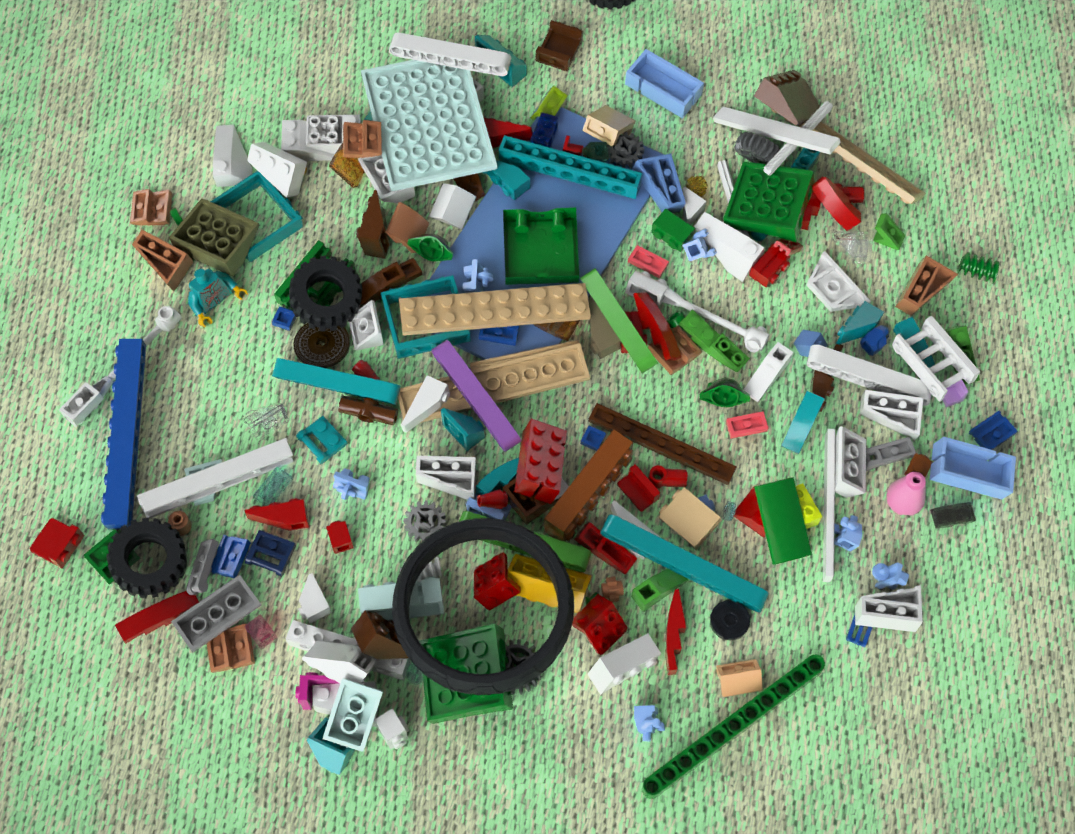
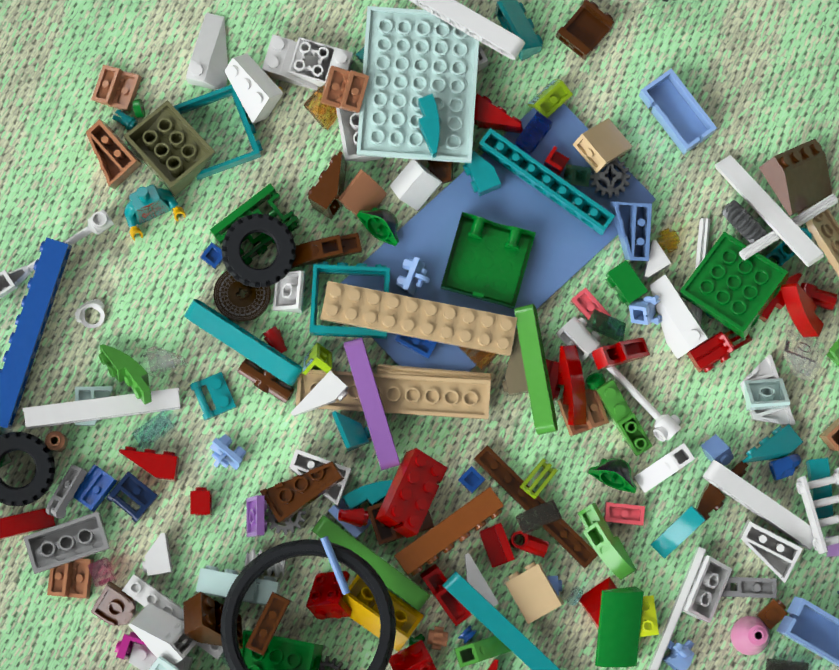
camera: 15 degrees right, 15 degrees up
(164, 229) = (125, 120): none -> teal pin
(184, 393) = (96, 304): none -> white piece
(230, 435) = (128, 370): none -> bright green slope
(282, 659) = (114, 606): none -> tile
(397, 530) = (255, 516): none -> medium lavender plate
(408, 368) = (317, 356): none -> lime panel
(429, 496) = (293, 495): none -> reddish brown wing
(442, 607) = (267, 623): none -> reddish brown tile
(448, 142) = (429, 123): none -> teal slope
(491, 533) = (335, 565): none -> medium blue bar
(639, 577) = (467, 634): none -> blue bush
(658, 408) = (547, 467): none -> lime tile
(666, 448) = (538, 516): none -> clear smoke slope
(668, 270) = (606, 325): none -> clear green slope
(689, 288) = (620, 353): none -> red slope
(739, 453) = (604, 543): none -> bright green slope
(835, 283) = (765, 394): none -> light aqua slope

